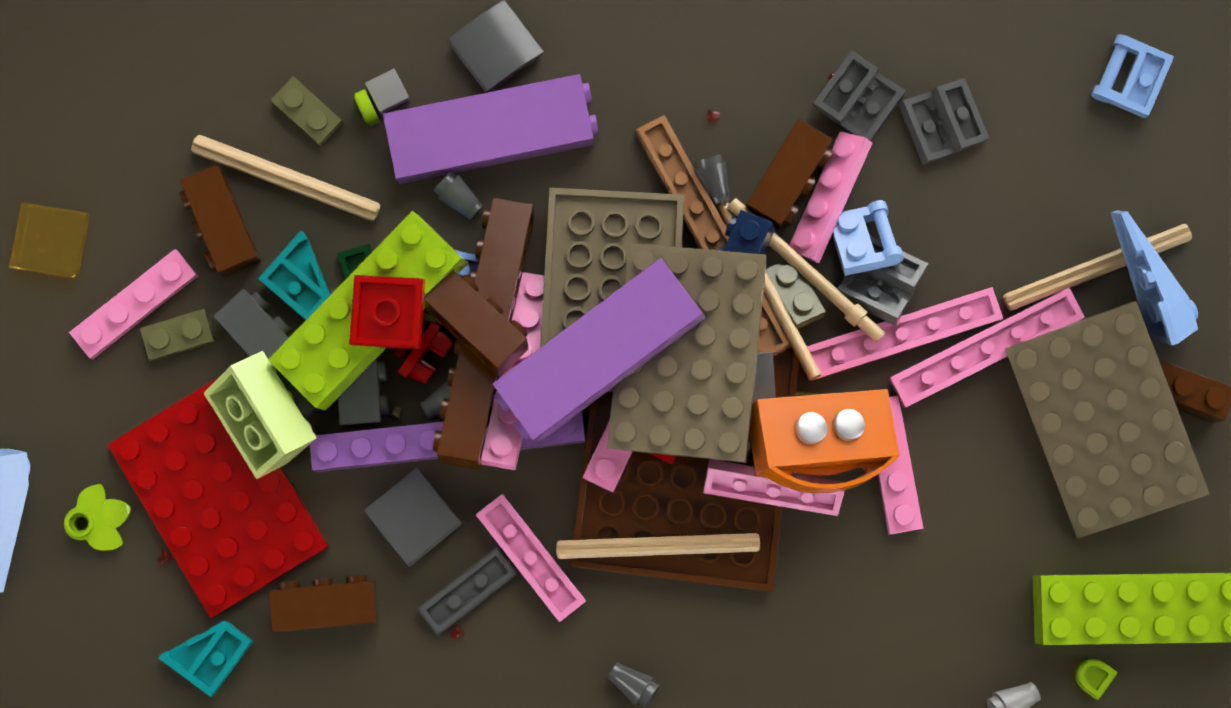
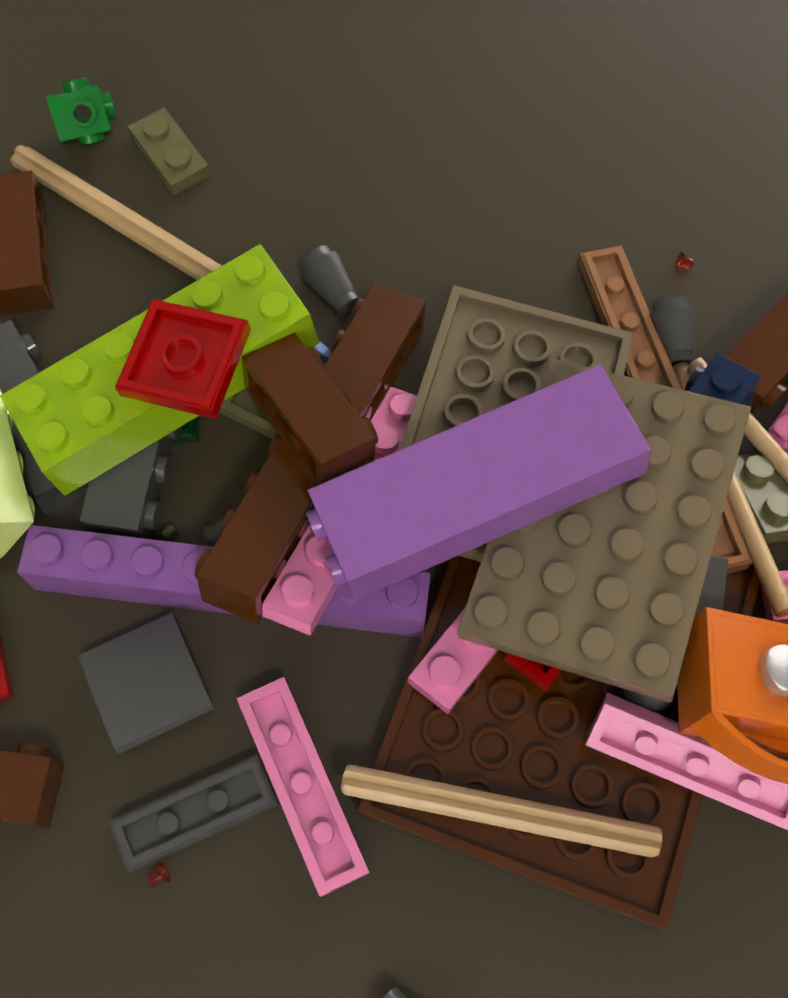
camera: 15 degrees right, 15 degrees down
(233, 100) = (72, 125): none -> green brick
(297, 277) = (85, 316): teal wing -> none
(366, 108) = (243, 159): lime tile -> none
(387, 91) = (275, 149): light grey tile -> none
(414, 365) = (219, 452): red hips -> none
(490, 129) = (394, 211): medium lavender brick -> none
(495, 46) = (422, 127): dark grey slope -> none

